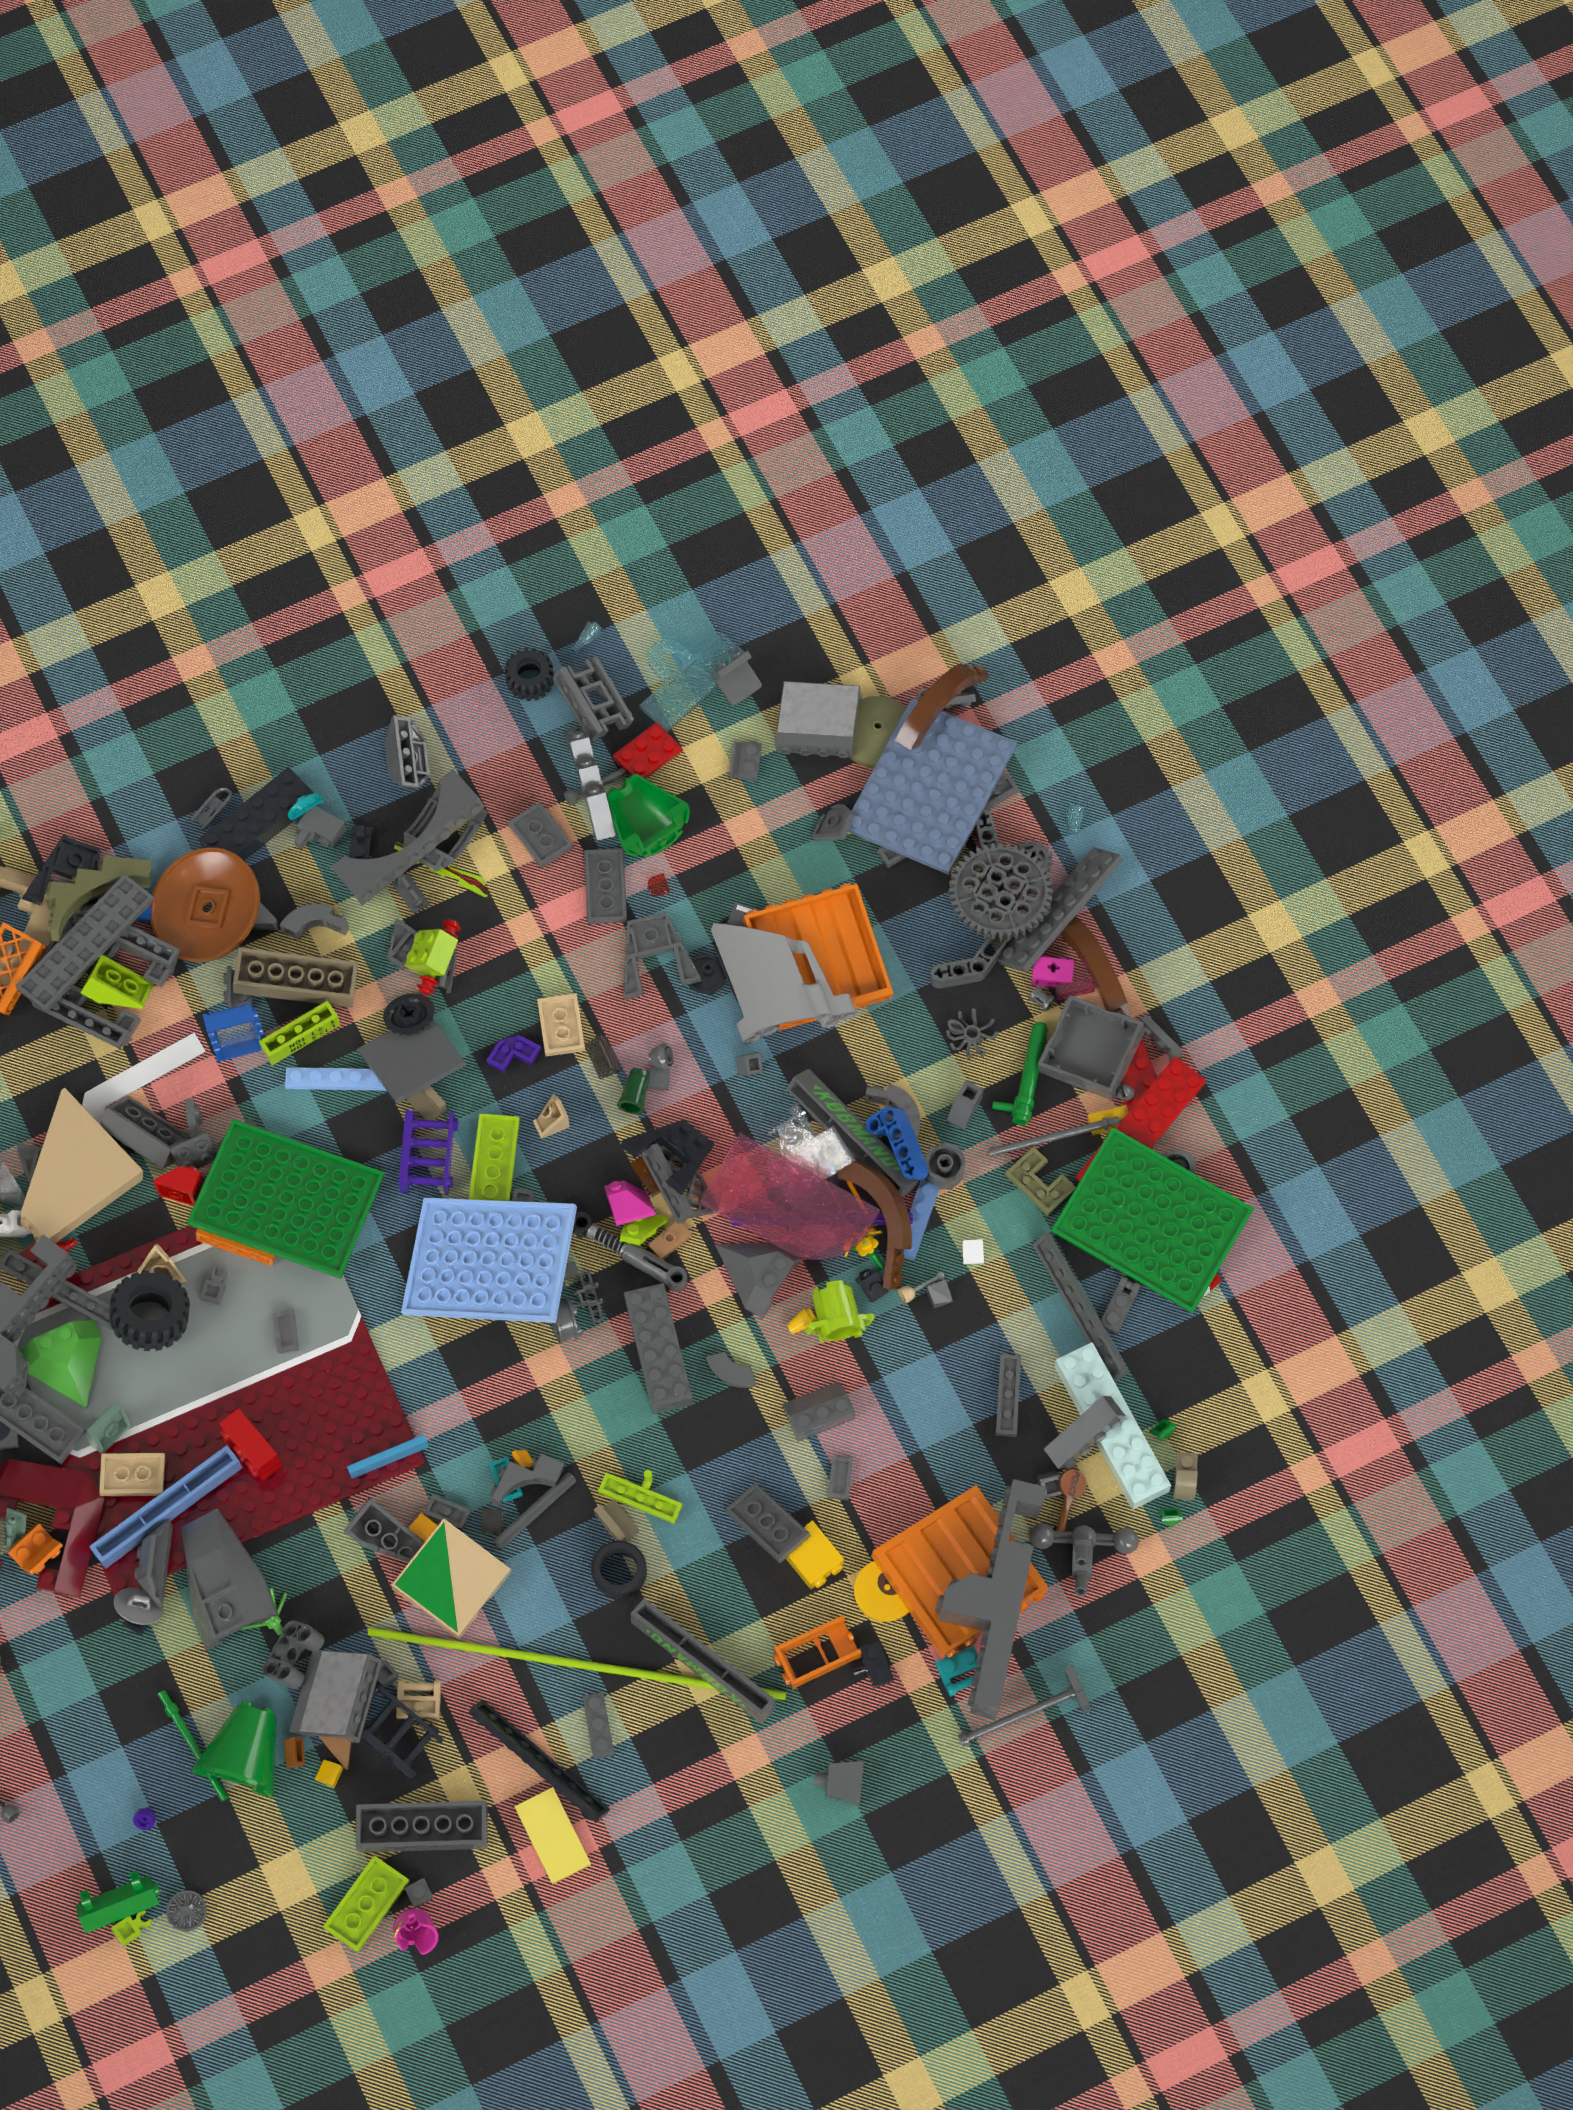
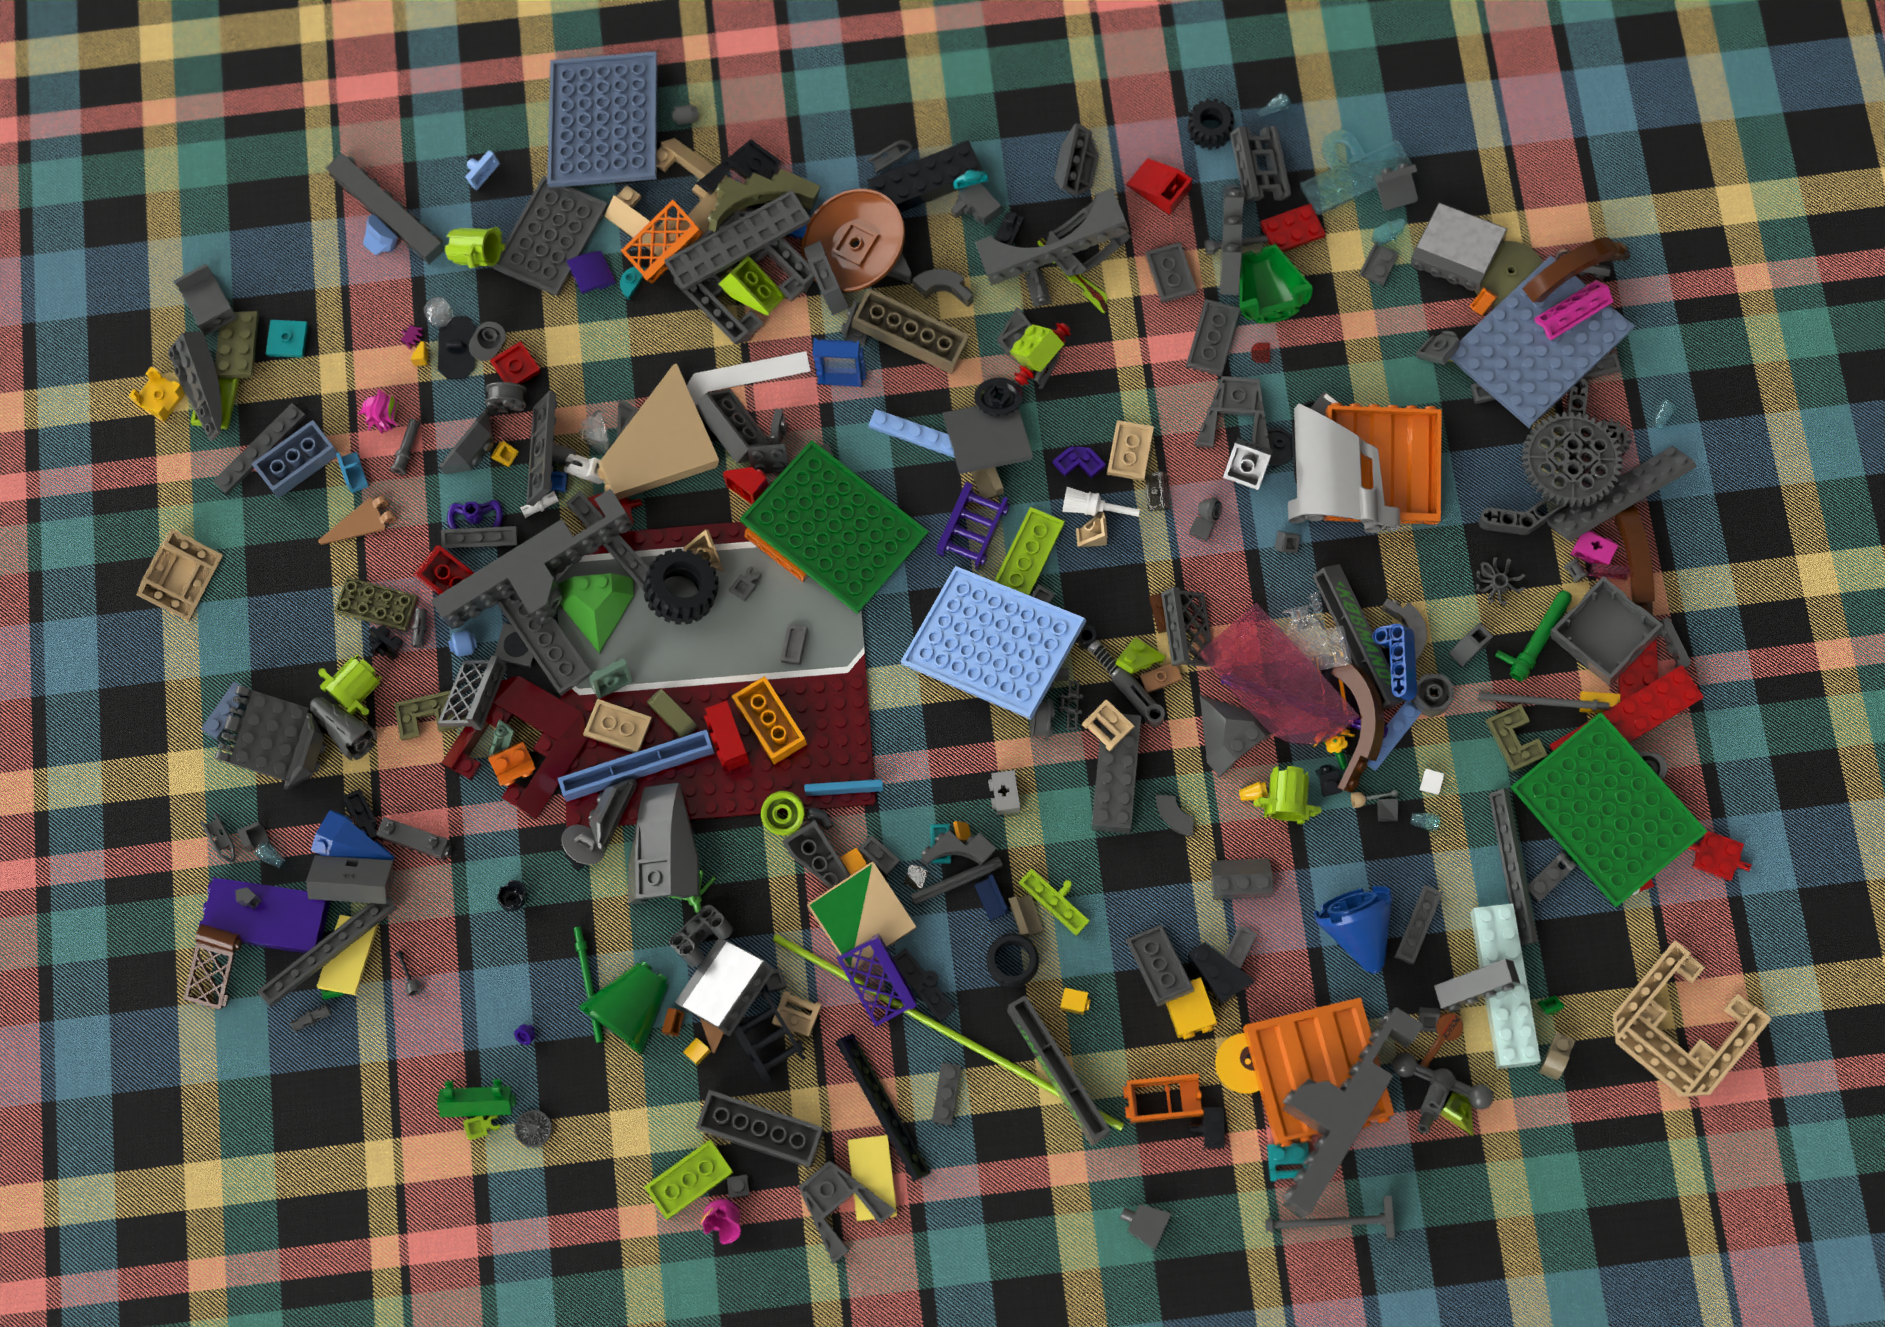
camera: 25 degrees right, 5 degrees up
(82, 1683) = (512, 896): none -> black hair
(184, 1443) = (672, 714): none -> olive beam
(190, 951) = (825, 278): none -> dark grey slope
(288, 1414) = (769, 720): none -> light orange brick
(299, 1033) = (896, 382): lime brick -> none
(343, 1513) = (791, 803): none -> lime wheel
(373, 1493) = (820, 815): none -> dark grey arm
(499, 750) = (1160, 184): none -> red slope
(503, 1623) = (893, 973): none -> dark purple fence
(512, 1864) = (826, 1192): none -> dark grey wing
(537, 1625) = (924, 985): none -> black hinge
(540, 1090) = (1091, 504): none -> white piece
(549, 1395) = (1004, 781): none -> light grey brick
(576, 1516) = (991, 898): none -> dark blue panel
(628, 1202) = (1135, 631): dark pink slope -> none
(634, 1092) = (1175, 533): dark green plant -> none
(637, 1297) = (1112, 720): none -> tan plate
(682, 1141) = (1201, 590): black wing -> none
(683, 999) = (1247, 463): none -> flat silver brick
(695, 1588) = (1075, 1001): none -> yellow brick
(743, 725) = (1388, 231): none -> clear light blue arm
(829, 1511) = (1219, 974): none -> black wedge
(861, 765) = (1483, 301): none -> orange piece
(951, 1414) = (1359, 924): none -> blue cone
(953, 744) = (1575, 309): none -> dark pink fence
(982, 1291) = (1427, 821): none -> clear light blue cone
(1110, 1563) = (1459, 1112): none -> lime slope
(1128, 1091) = (1627, 682): dark grey hinge -> none
(1171, 1516) = (1530, 1088): green slope -> none
(1273, 1229) = (1718, 856): none -> red plate
(1310, 1448) = (1683, 1072): none -> tan slope

